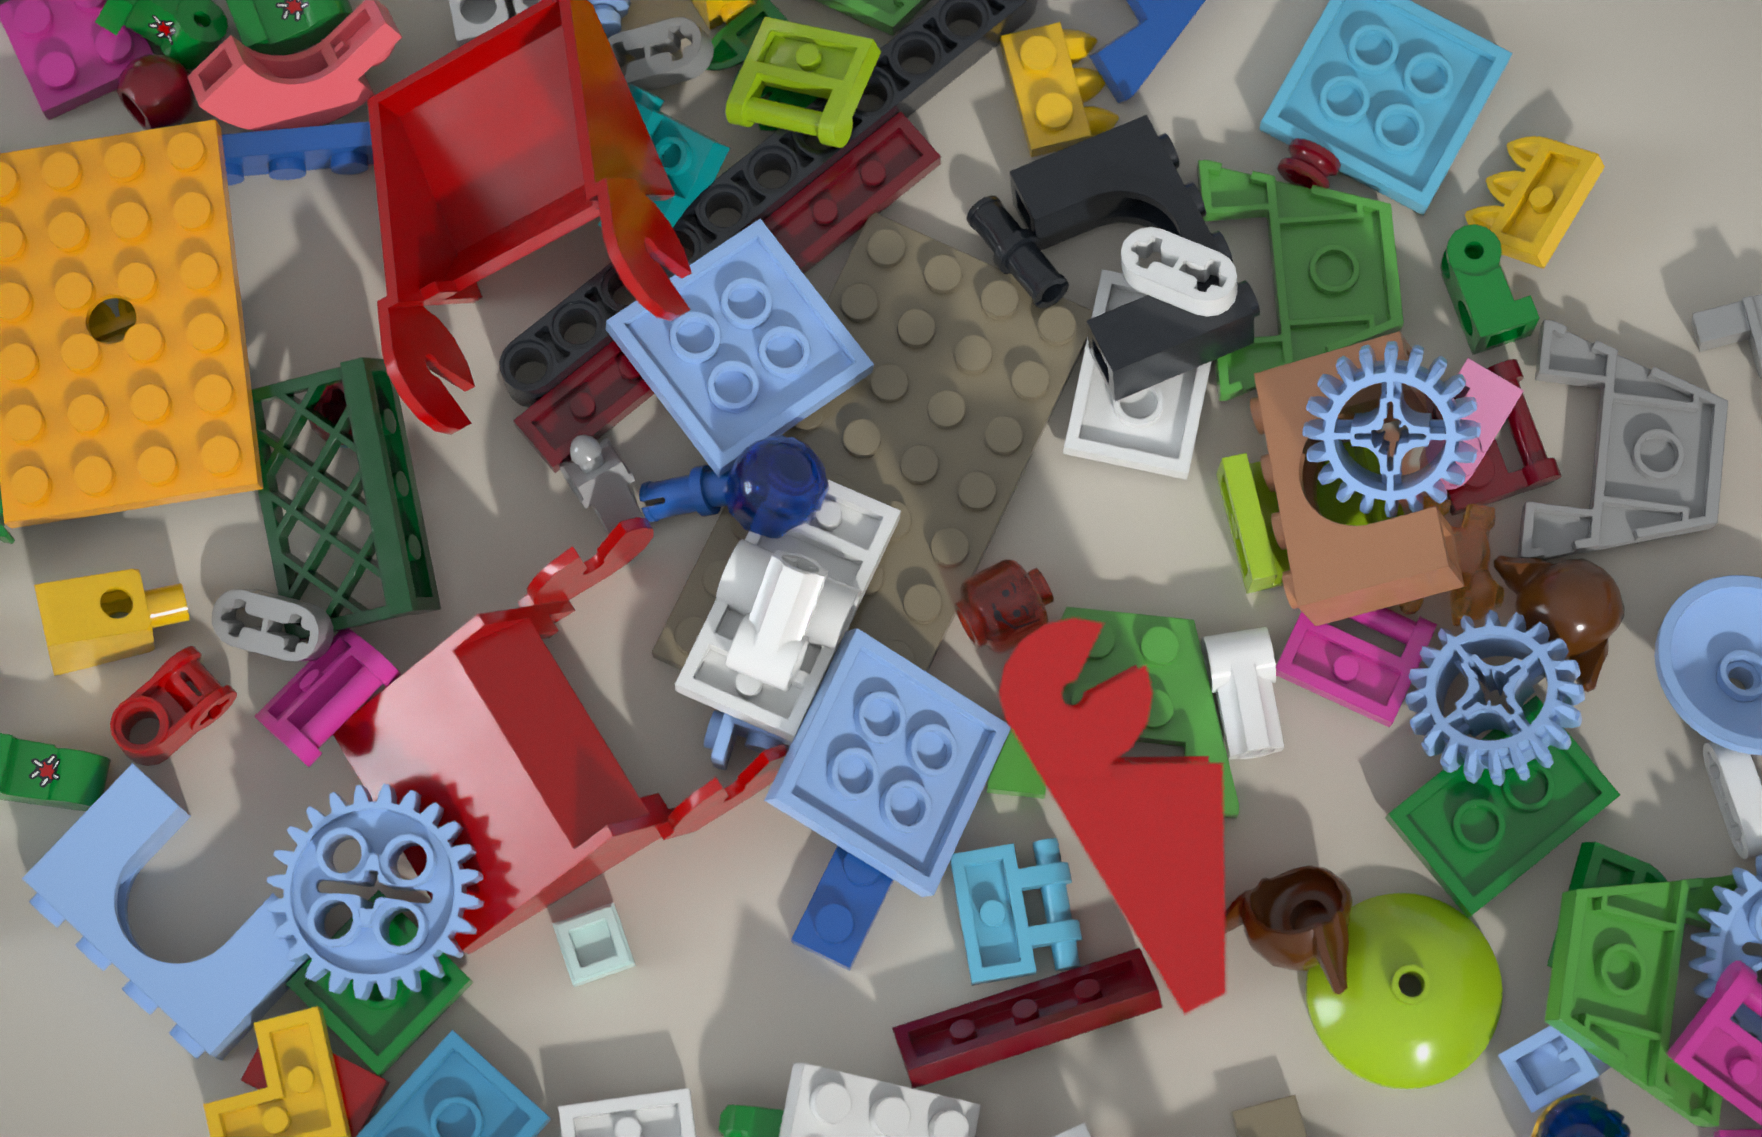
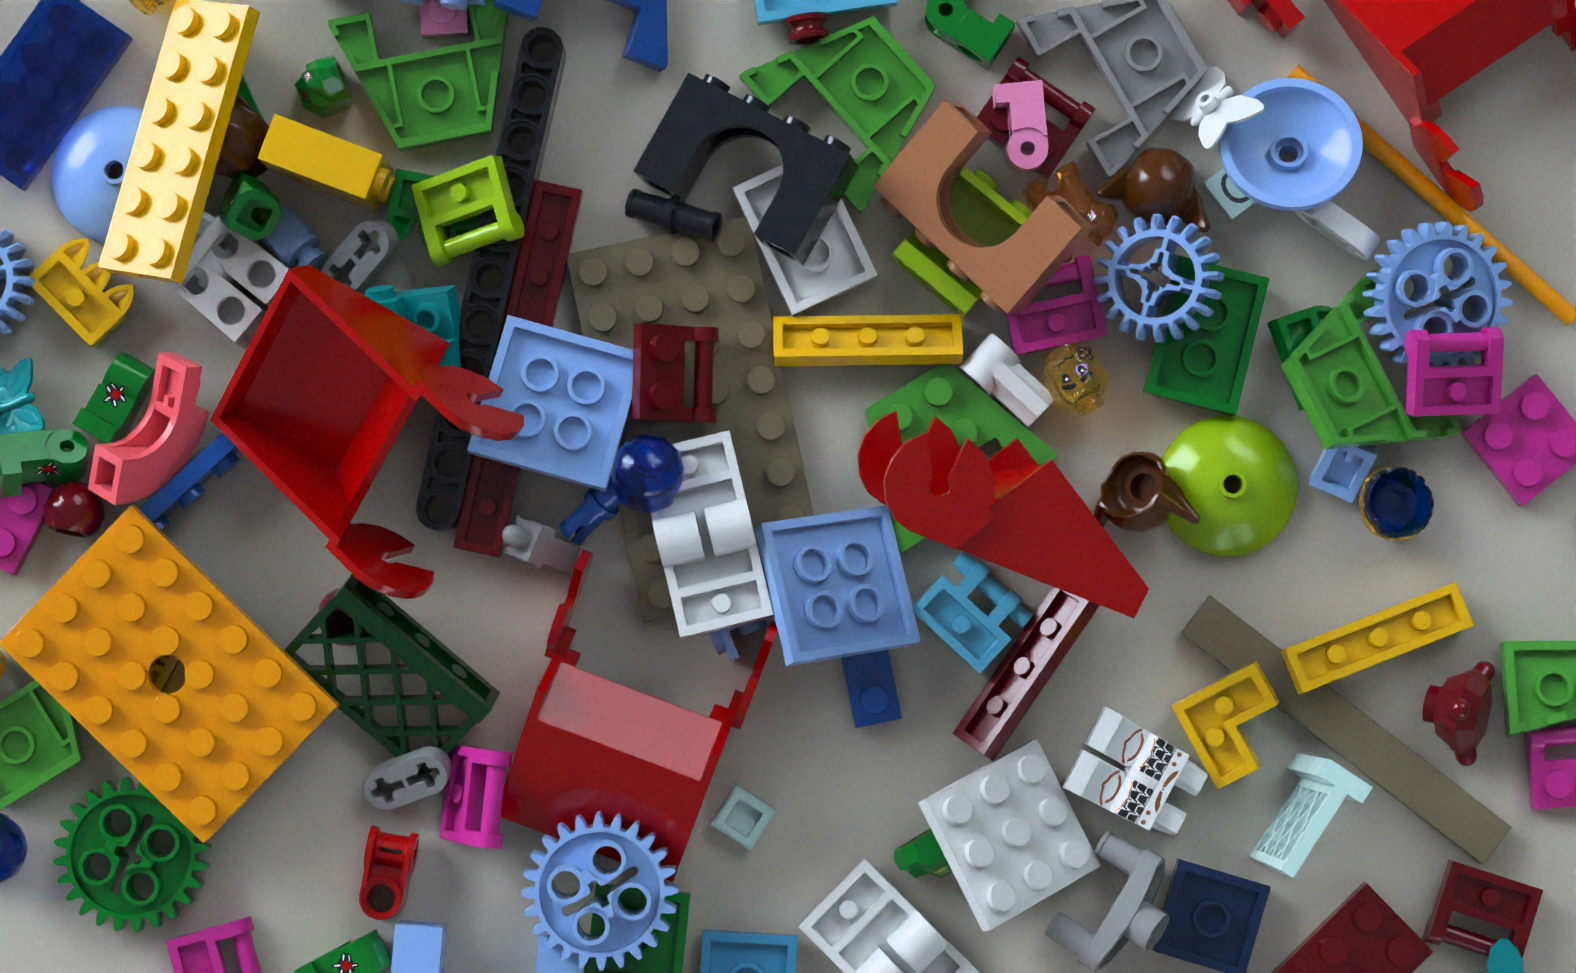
camera: 45 degrees left, 10 degrees up
(79, 621) = (294, 868): yellow torso -> none
(773, 636) = (717, 565): white piece -> none
(872, 398) = (660, 373): none -> dark red plate
(1003, 605) = (830, 438): clear red head -> none
(1052, 91) = (614, 93): yellow plate -> none
(1125, 535) = (867, 340): none -> yellow plate
(1180, 269) = (784, 152): white beam -> none
(1321, 743) = (1075, 379): none -> clear yellow head
(1362, 429) = (1002, 154): light blue gear -> none
(1639, 676) = (1226, 195): none -> light aqua tile
(1694, 563) = (1214, 108): none -> white piece

